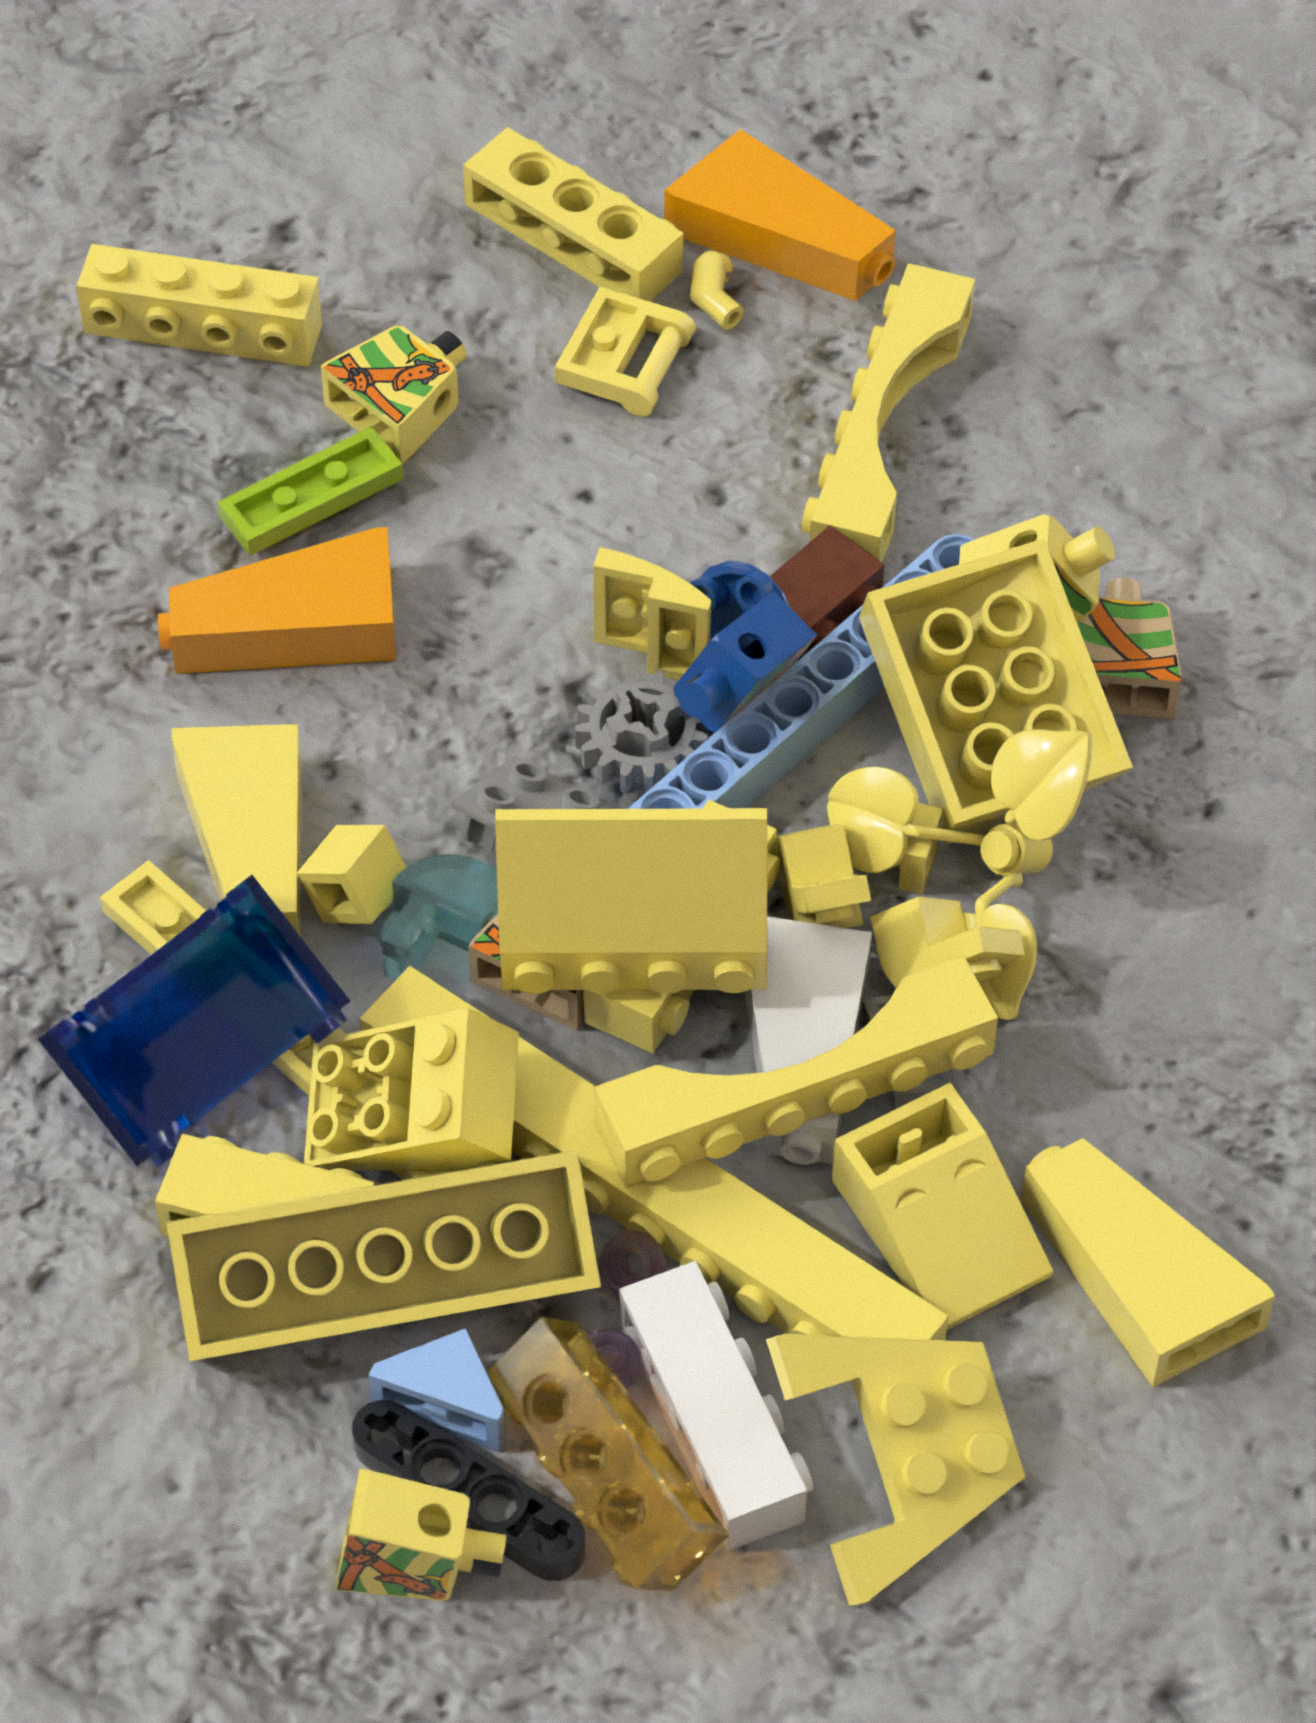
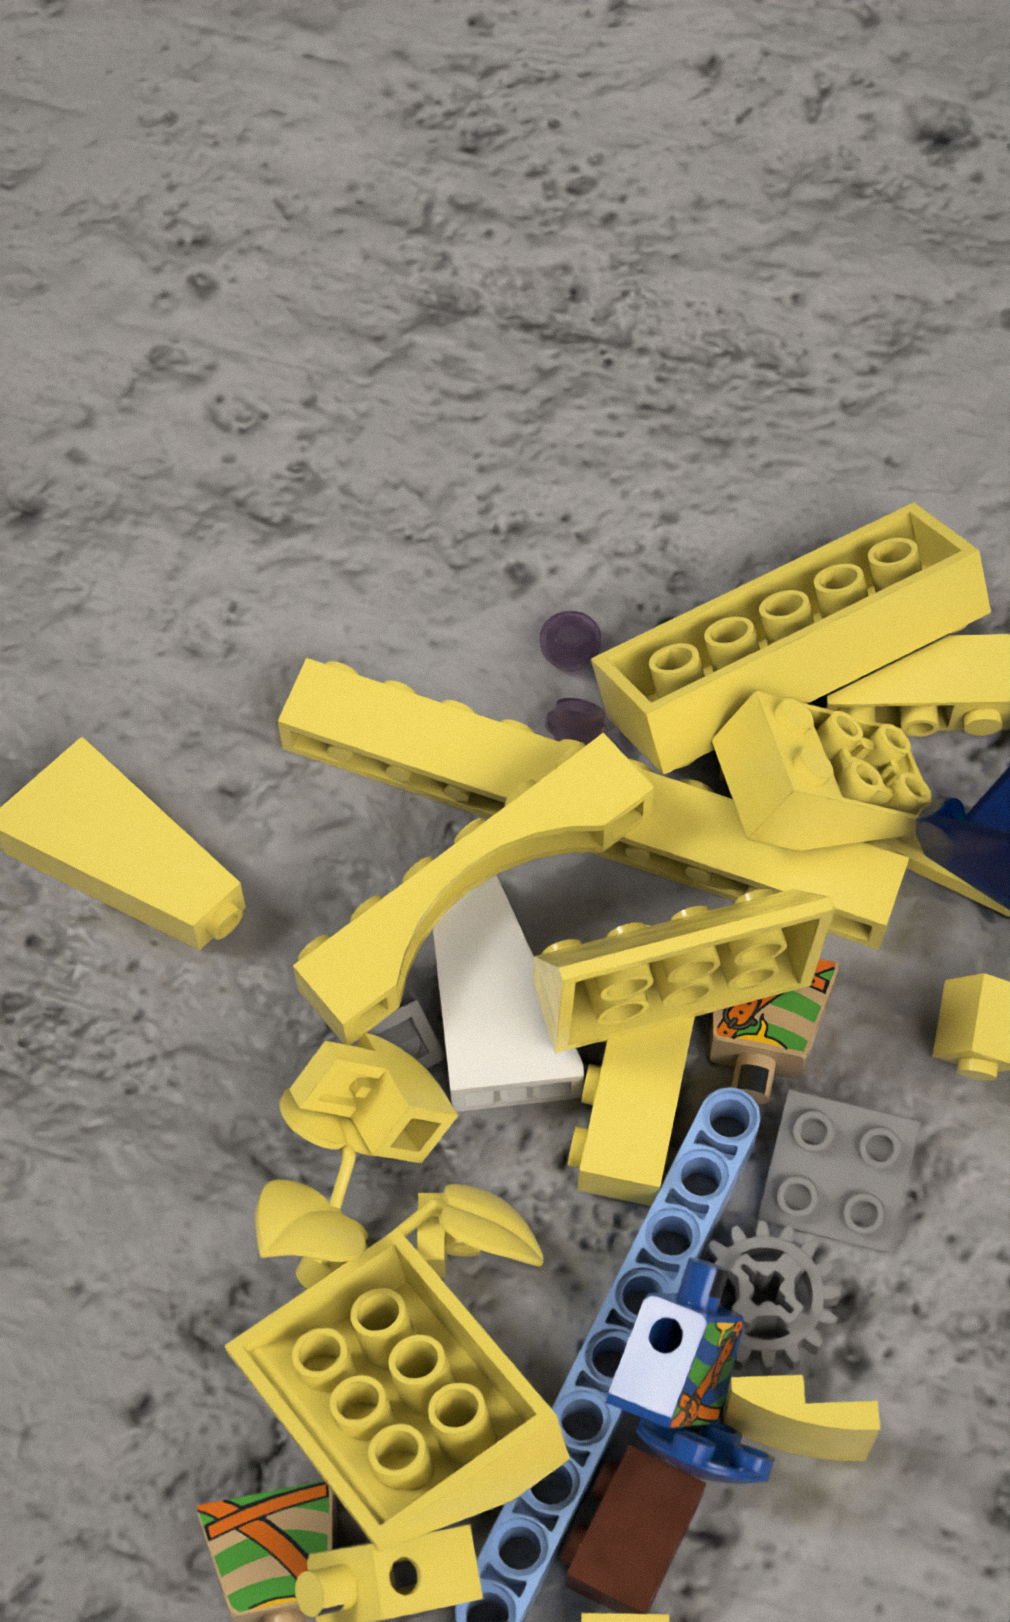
camera: 165 degrees right, 10 degrees up
(411, 1540) = (672, 426): light yellow torso -> none
(435, 900) = (882, 1038): clear light blue brick -> none
(444, 1386) = (695, 565): light blue slope -> none
(476, 1480) = (643, 518): black beam -> none
(676, 1522) = (539, 540): clear yellow brick -> none
(714, 1405) = (464, 617): white brick -> none
(820, 878) = (521, 1154): light yellow brick -> none
(932, 1432) = (271, 631): light yellow wing -> none
(940, 1205) = (314, 840): light yellow slope -> none

